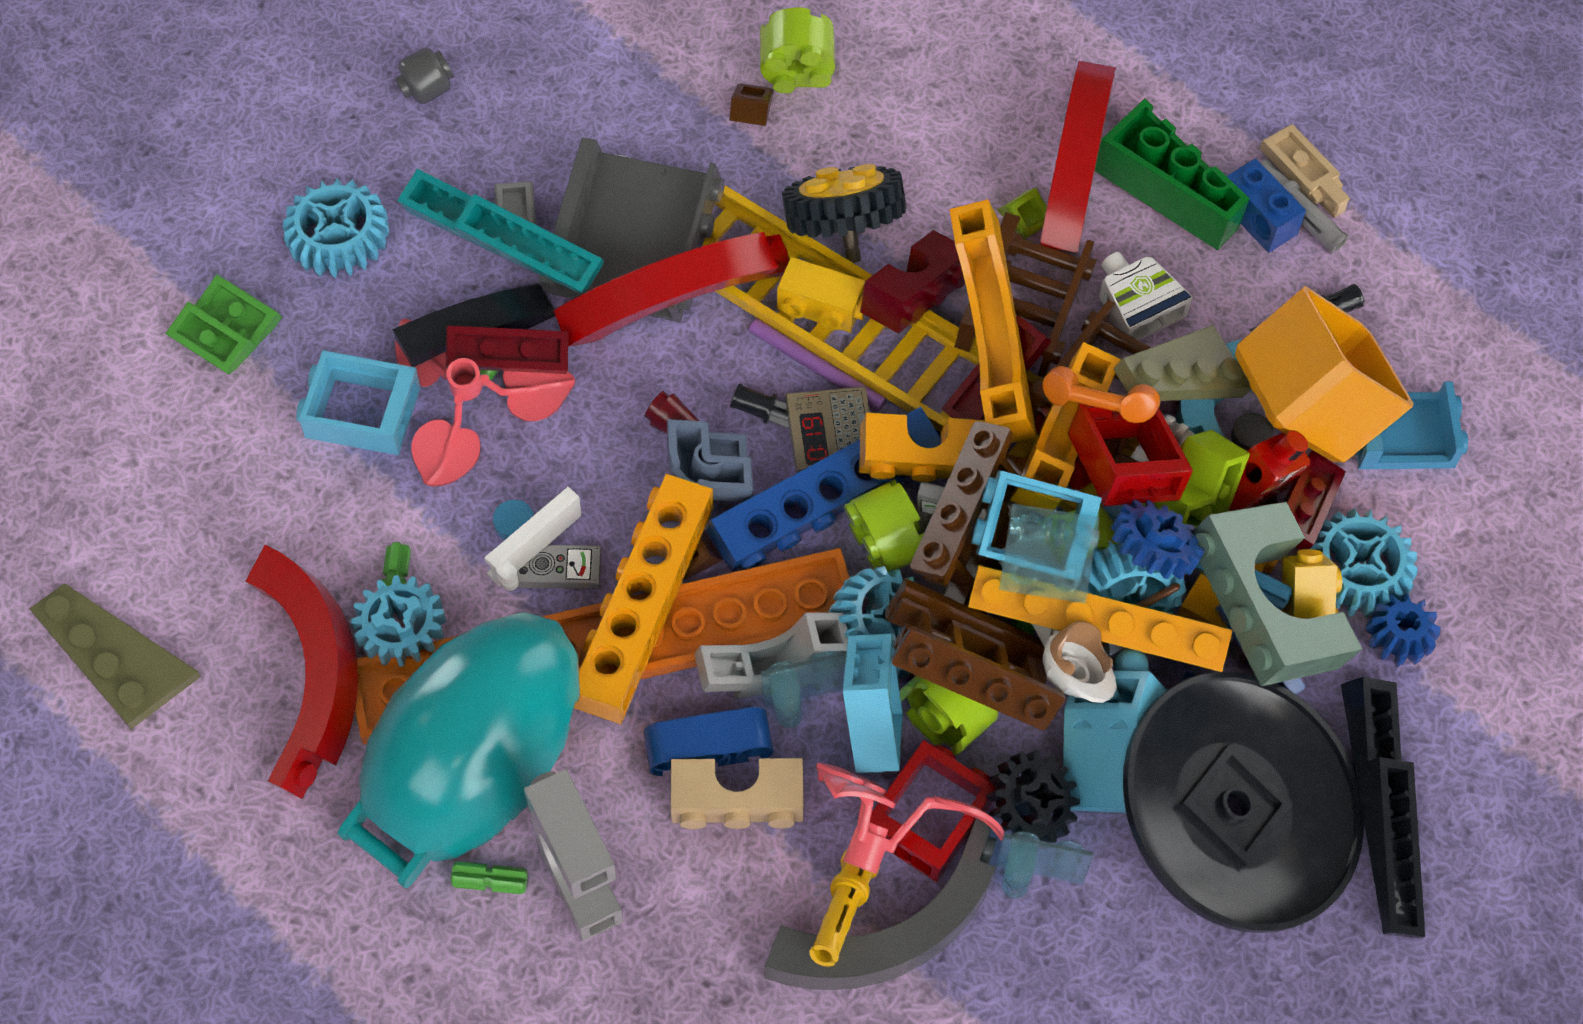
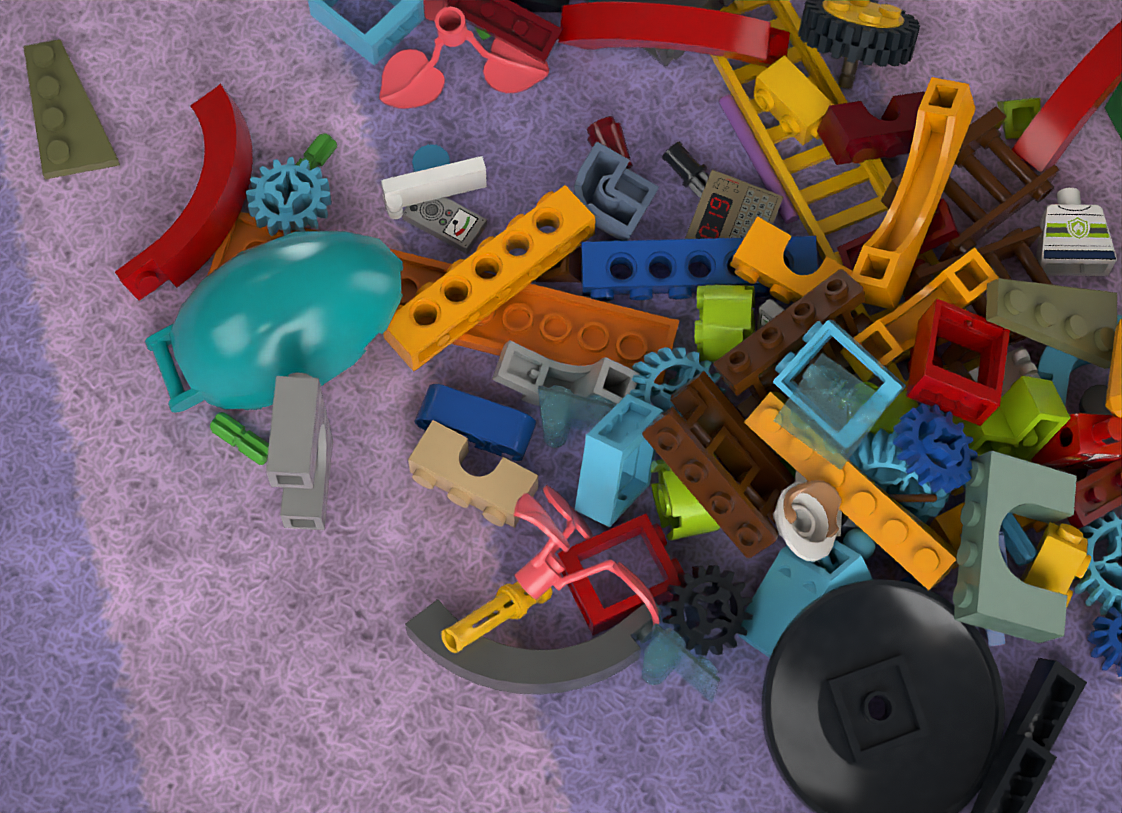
camera: 30 degrees right, 5 degrees up
(1136, 407) = (983, 325): orange bar -> none

